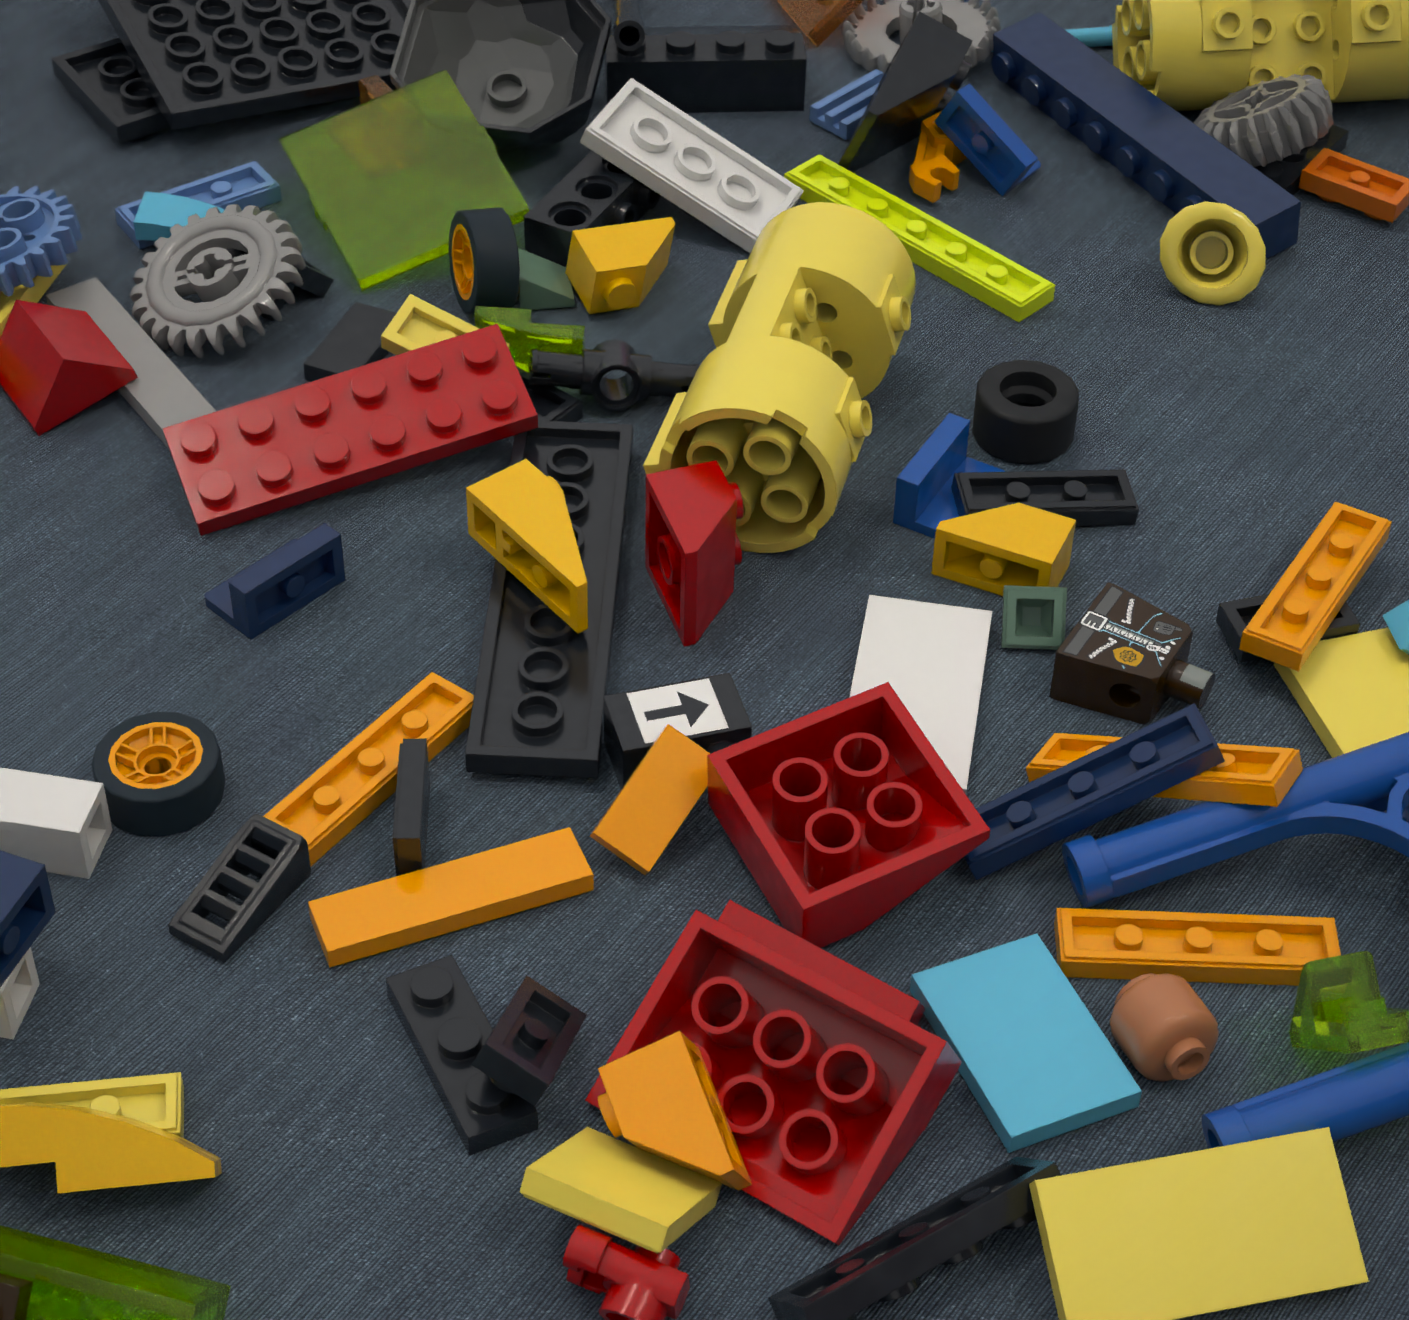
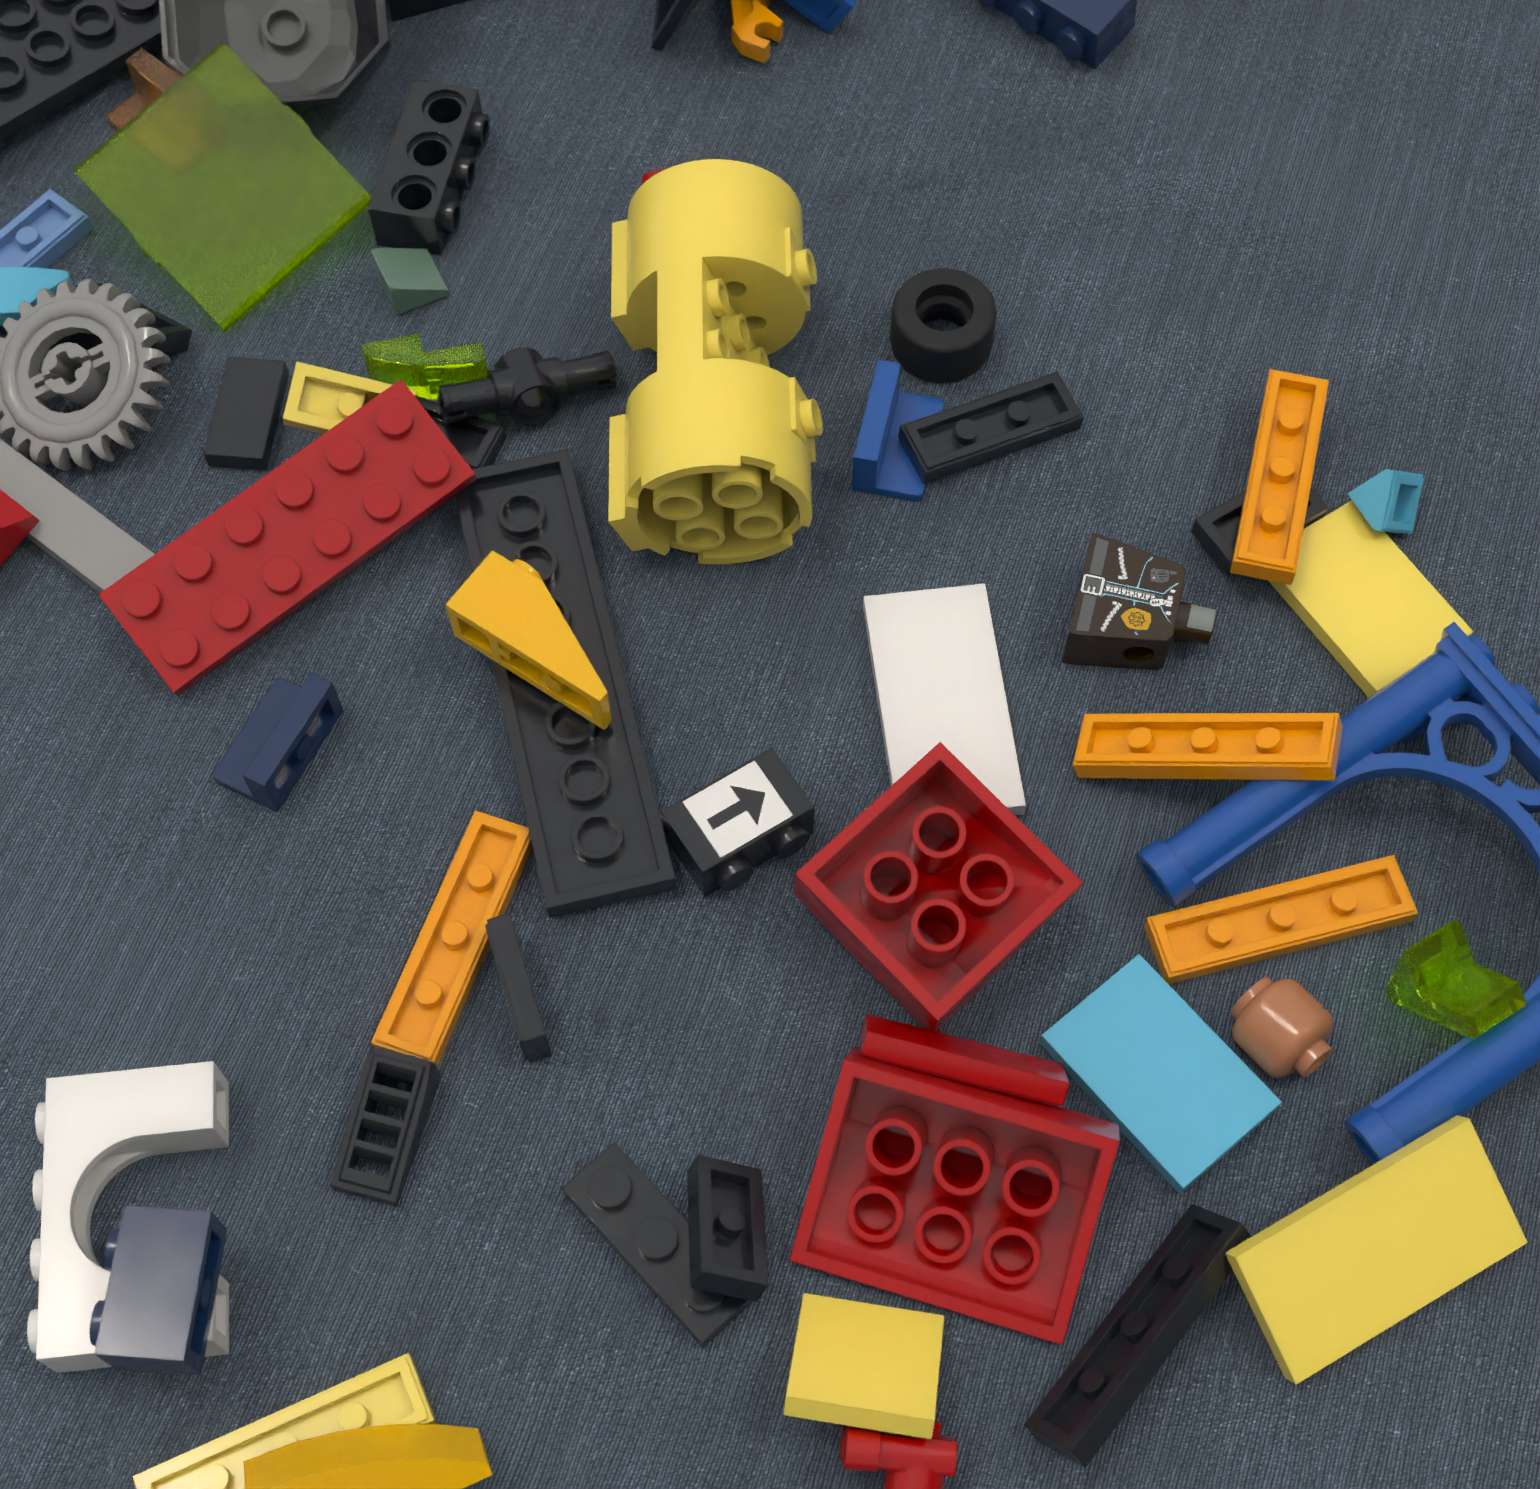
camera: 15 degrees left, 20 degrees up
(159, 773) = (231, 990): black wheel -> none
(450, 896) = (585, 1070): light orange tile -> none
(484, 259) = (346, 277): black wheel -> none
(618, 263) = (480, 238): yellow slope -> none
(654, 800) = (748, 913): light orange tile -> none
(671, 1109) = (886, 1272): light orange slope -> none
(689, 164) = (515, 93): white tile -> none
(692, 543) = (681, 596): red slope -> none
(929, 241) = (764, 114): neon yellow tile -> none
(1004, 548) = (979, 508): yellow slope -> none
(1033, 617) = (1026, 581): sand green slope -> none
(1094, 788) = (1156, 786): dark blue tile -> none
(1212, 253) = (1067, 76): light yellow hat -> none

